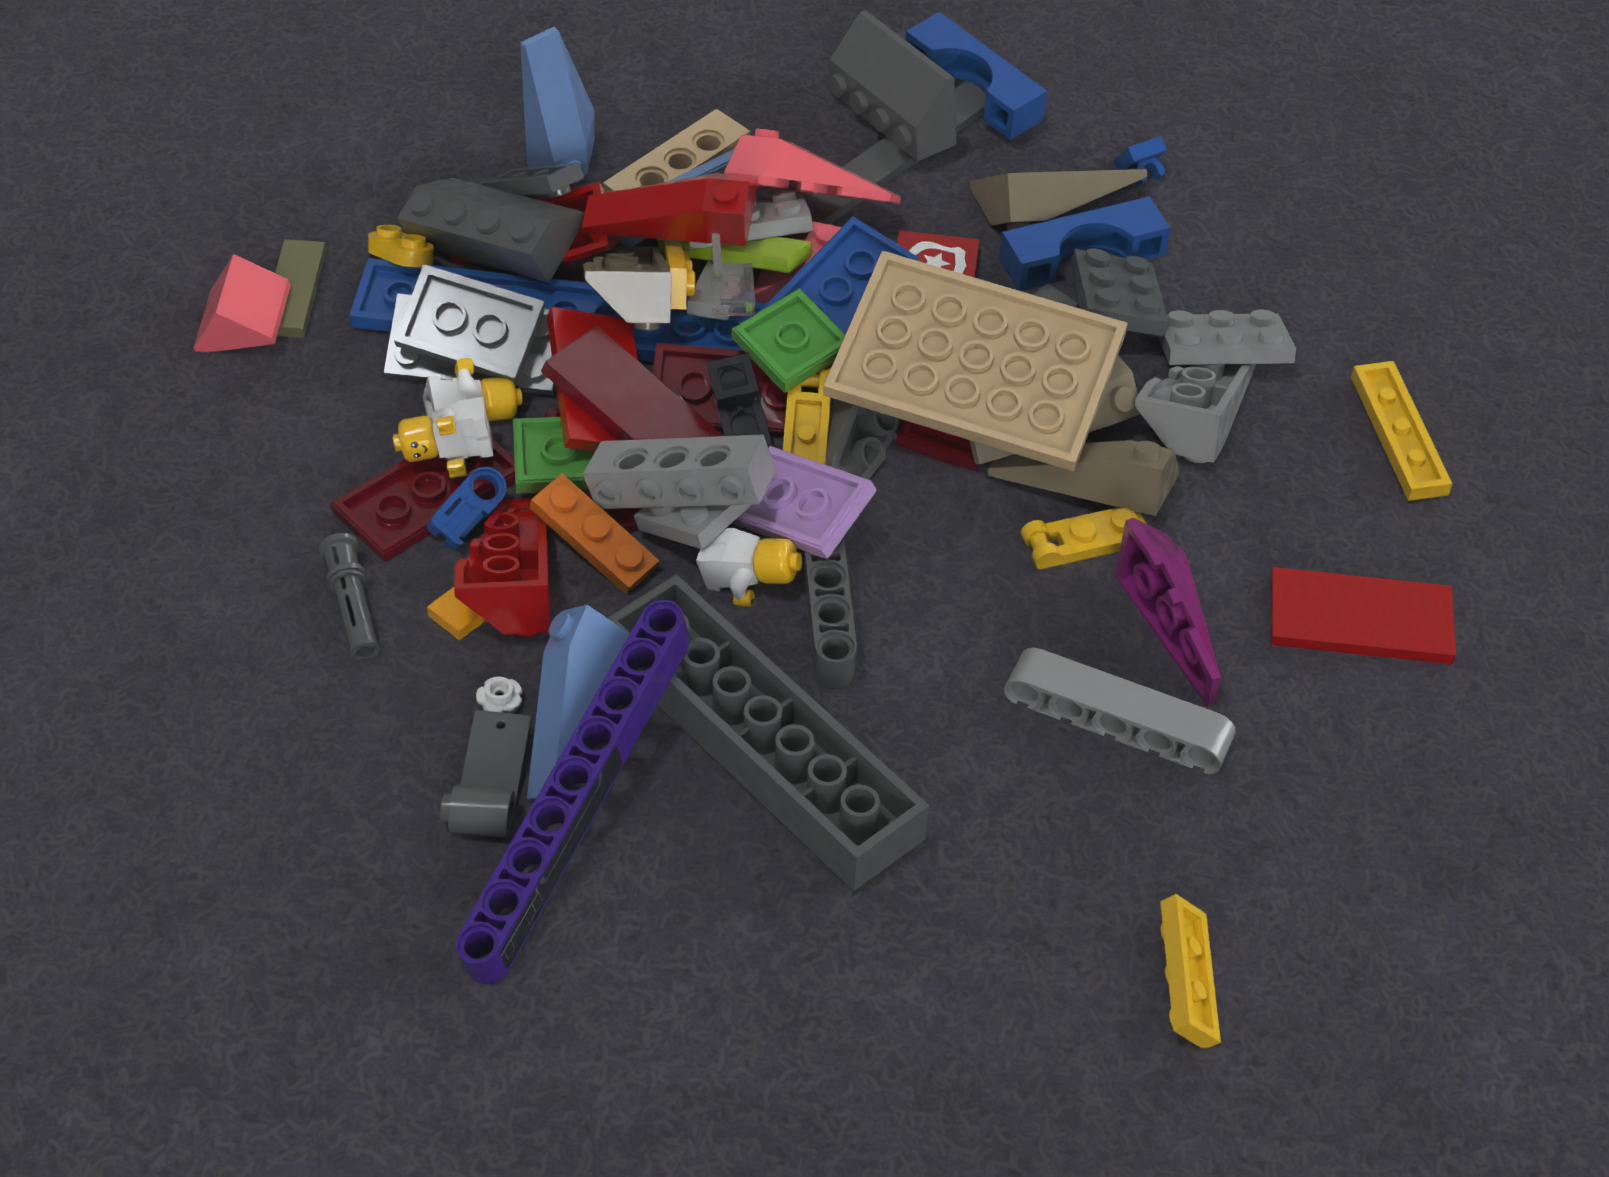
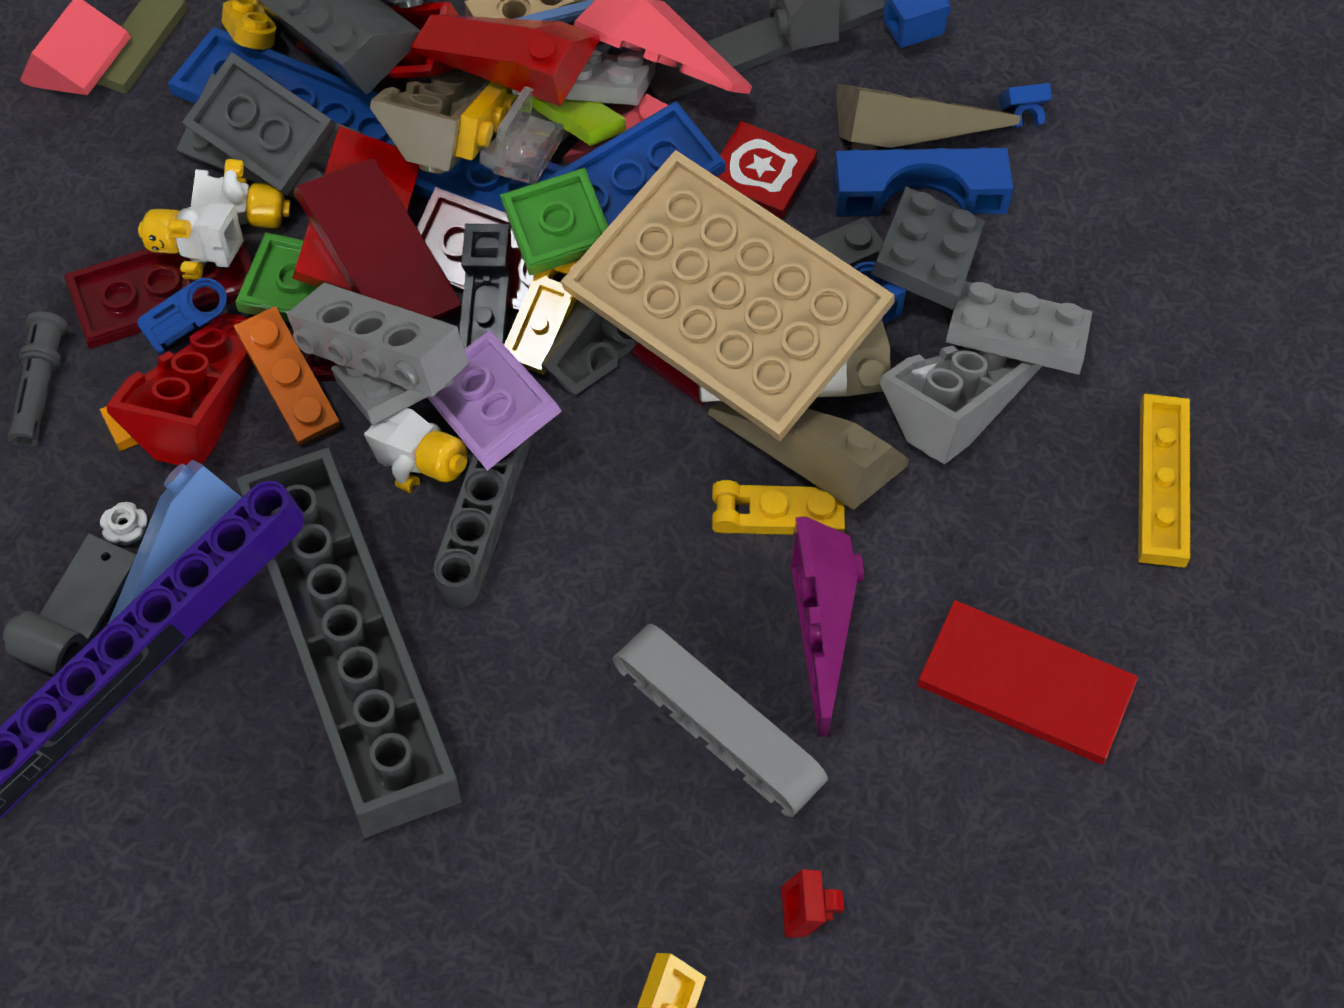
camera: 20 degrees right, 10 degrees up
(1264, 830) = (808, 904): none -> red tile

